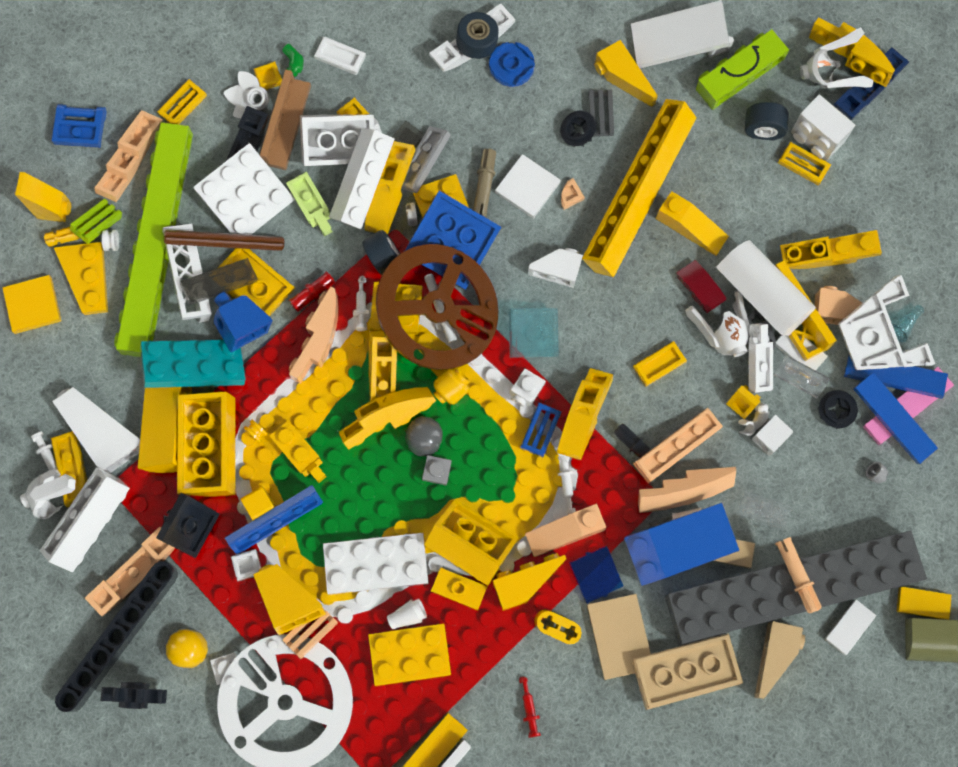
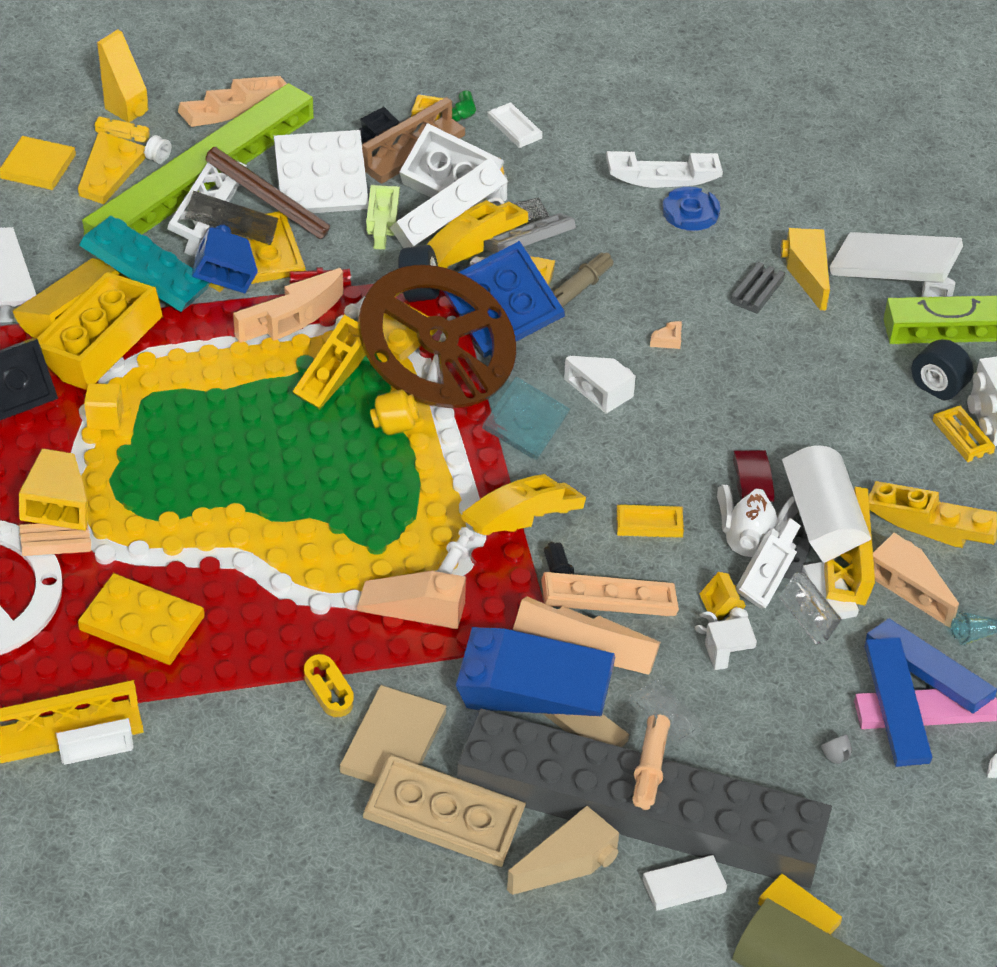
camera: 30 degrees right, 30 degrees down
(78, 132) = (208, 60): blue plate -> none
(92, 218) = (147, 125): lime tile -> none
(188, 109) = (325, 90): yellow tile -> none
(245, 93) = (399, 106): white plate -> none
(246, 564) = (35, 447): white tile -> none
(255, 431) = (157, 349): yellow bush -> none
(274, 520) = (107, 426): blue tile -> none
(298, 451) = (185, 389): yellow hinge -> none
(375, 563) = (179, 522): white plate -> none
(393, 408) = (317, 398): yellow slope -> none
(408, 614) = (173, 578): white cone -> none
(423, 436) = (328, 442): dark grey hair -> none
(437, 470) = (317, 478): light grey plate -> none
(459, 589) = (248, 590): yellow plate -> none
(470, 542) = (296, 551): yellow slope -> none
(477, 35) = (669, 161): black wheel -> none
(520, 586) = (325, 618): yellow slope -> none
(526, 388) = (476, 459): white bracket -> none
(527, 186) = (625, 307): white tile -> none
(529, 709) = (224, 754): red piece -> none
(533, 449) = (452, 514): blue tile -> none
(569, 133) = (730, 281): black gear -> none
(596, 574) = (415, 663): clear blue piece -> none
(639, 187) = (746, 356): yellow brick -> none
(691, 223) = (782, 410): yellow slope -> none
(845, 402) = (828, 653): black gear -> none
(872, 337) = (922, 603): white wing -> none

